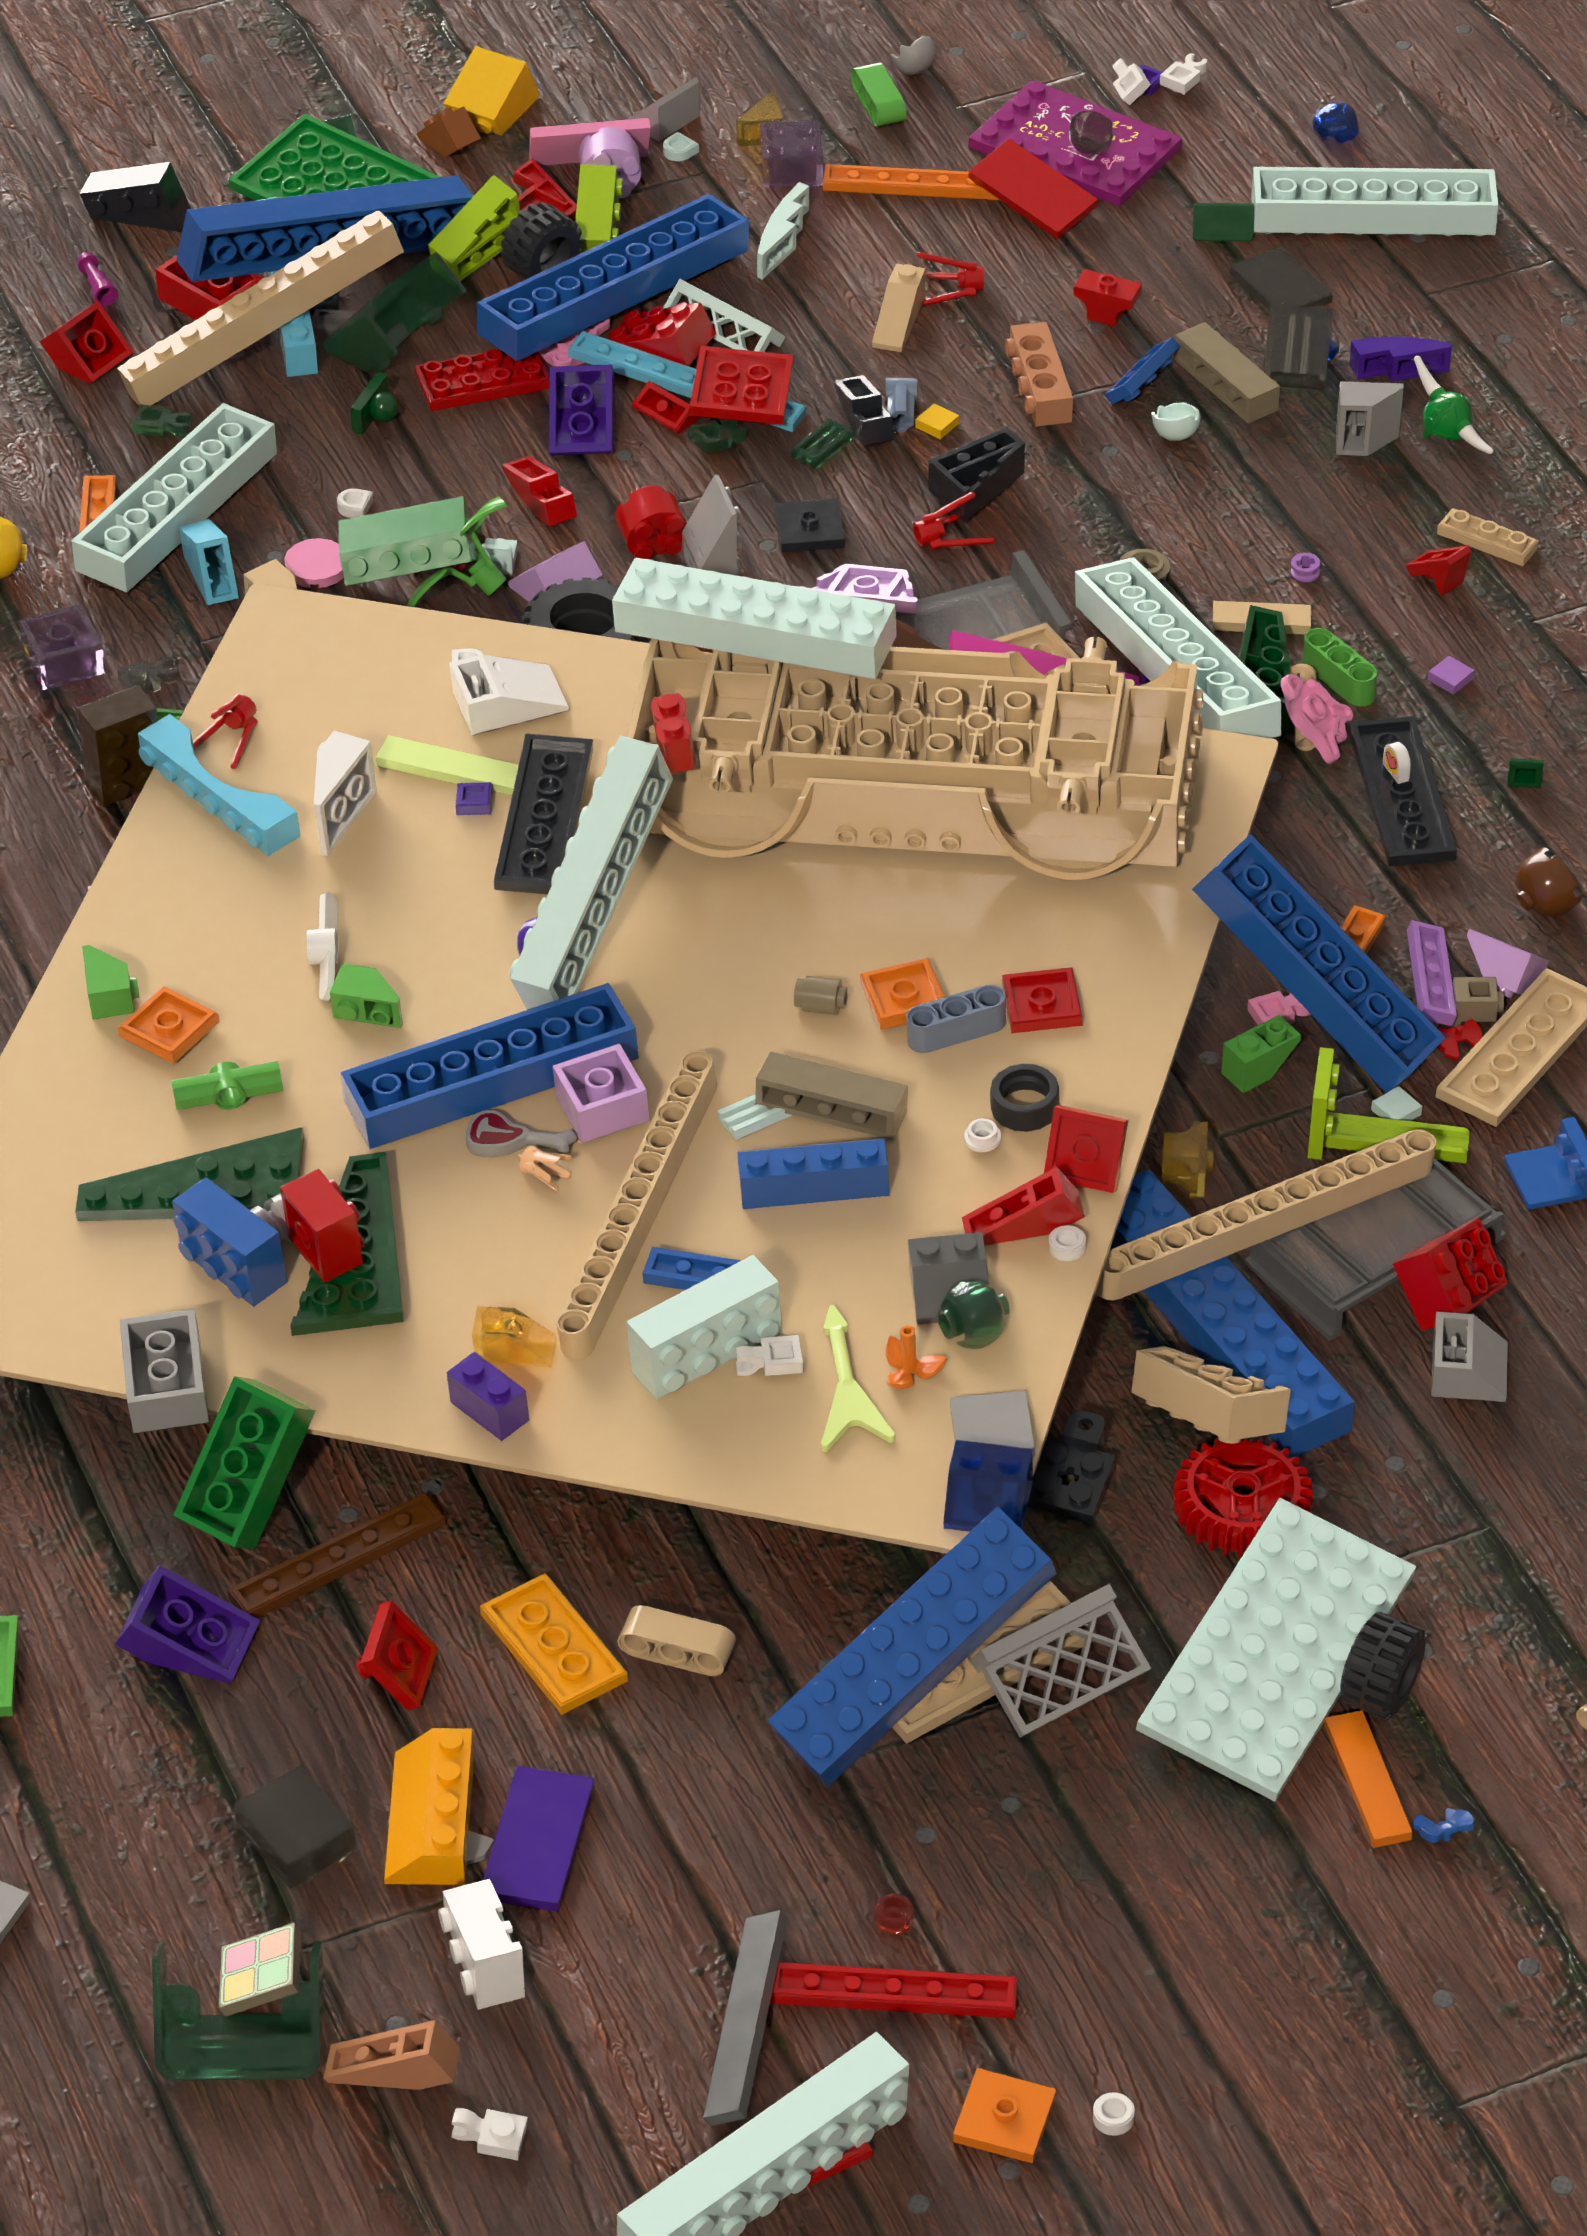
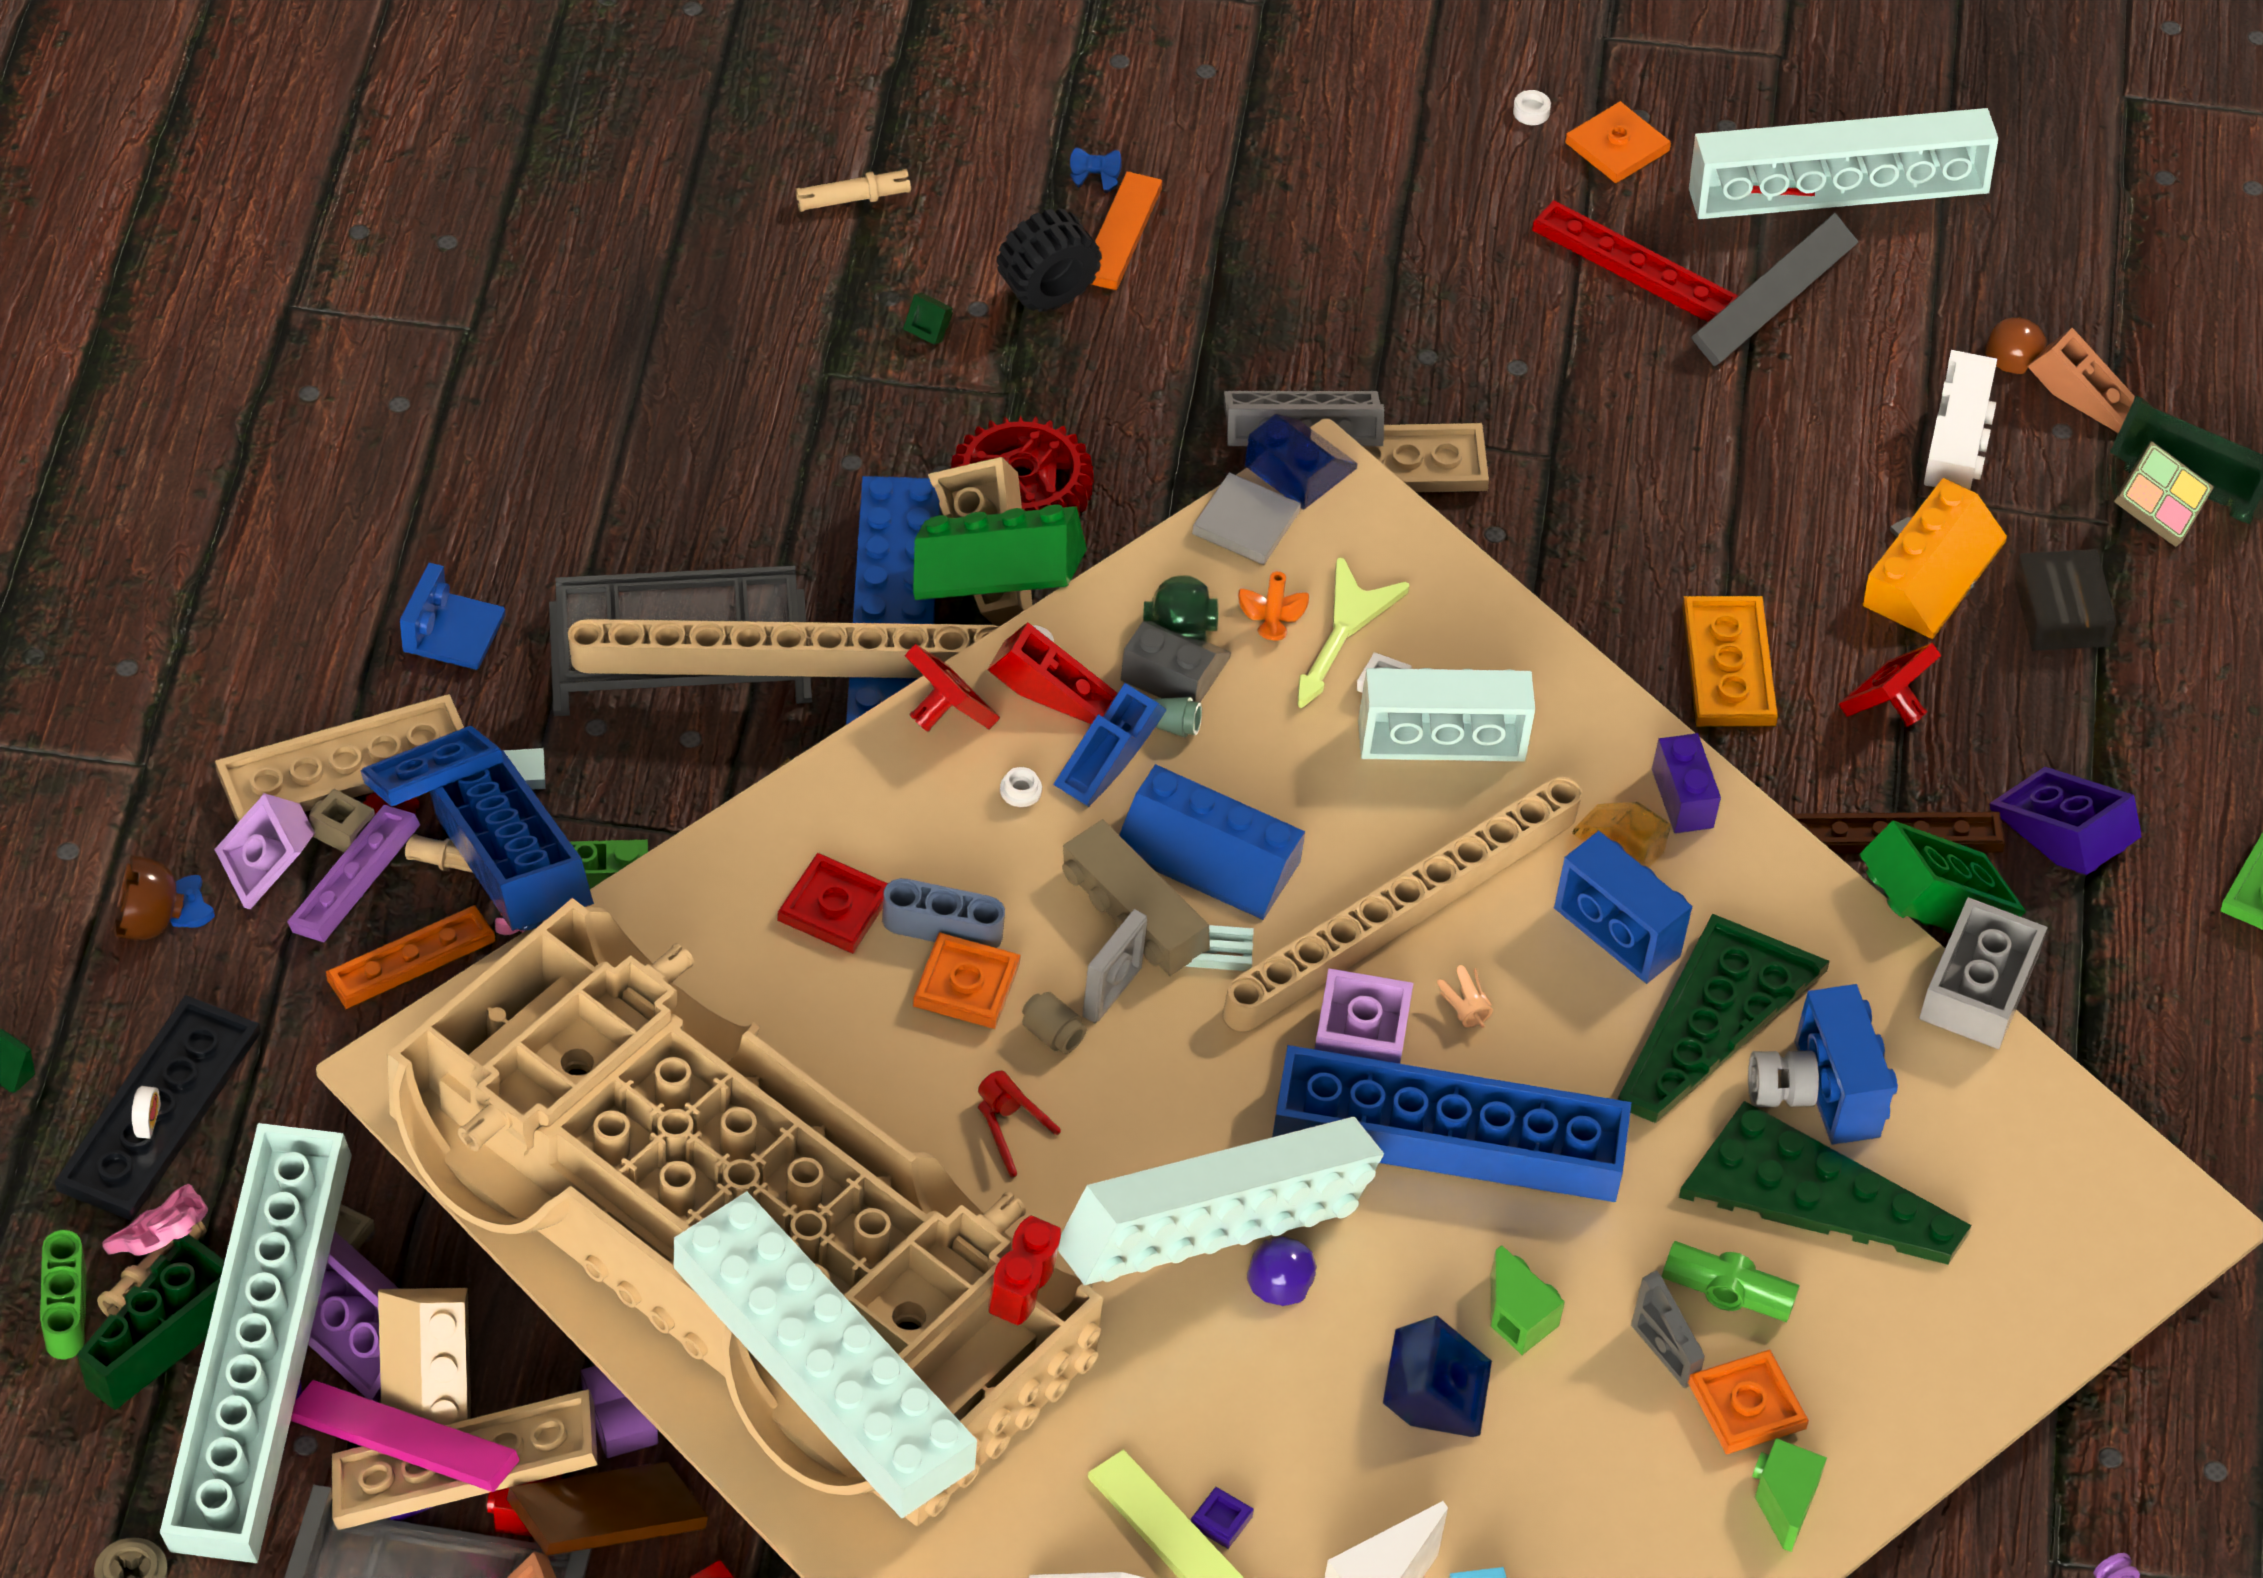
camera: 150 degrees left, 5 degrees up
(249, 1021) = (1665, 1329): none -> dark grey wing
(322, 1224) = (1751, 994): red brick -> none
(323, 944) = (1524, 1392): white piece -> none
(387, 924) = (1437, 1378): none -> clear blue slope
(468, 1261) = (1623, 906): none -> blue brick
(486, 2080) = (2015, 344): none -> dark orange hair
(494, 1135) = (1468, 1058): light grey piece -> none
(496, 2134) = (2036, 307): white plate -> none
(538, 1837) = (1853, 506): dark purple tile -> none
(542, 811) = (1167, 1426): black plate -> none
(676, 1640) = (1622, 597): tan beam -> none
(681, 1268) = (1397, 799): blue plate -> none
(801, 1020) = (1115, 966): none -> light grey tile
(815, 936) = (1005, 1097): none -> red plant
(894, 1914) = (1596, 308): clear red tile -> none
(900, 1236) = (1181, 716): none -> sand green cone
(912, 1646) = (1449, 415): blue brick -> none
(941, 1191) = (1109, 745): none -> blue slope
(1024, 1078) = (949, 821): black tyre -> none
(1167, 1329) = (997, 552): none -> green slope
(1233, 616) = (70, 1426): tan tile -> none
(1273, 1649) = (1111, 336): light aqua plate -> none
(1361, 1132) = (603, 755): lime bracket -> none
(1444, 1037) = (431, 765): none -> blue tile
(1445, 1596) = (928, 318): none -> dark green tile
(1451, 1273) = (669, 548): red slope -> none
(1468, 1359) = (717, 489): light grey slope -> none
(1537, 926) = (195, 910): none -> blue piece

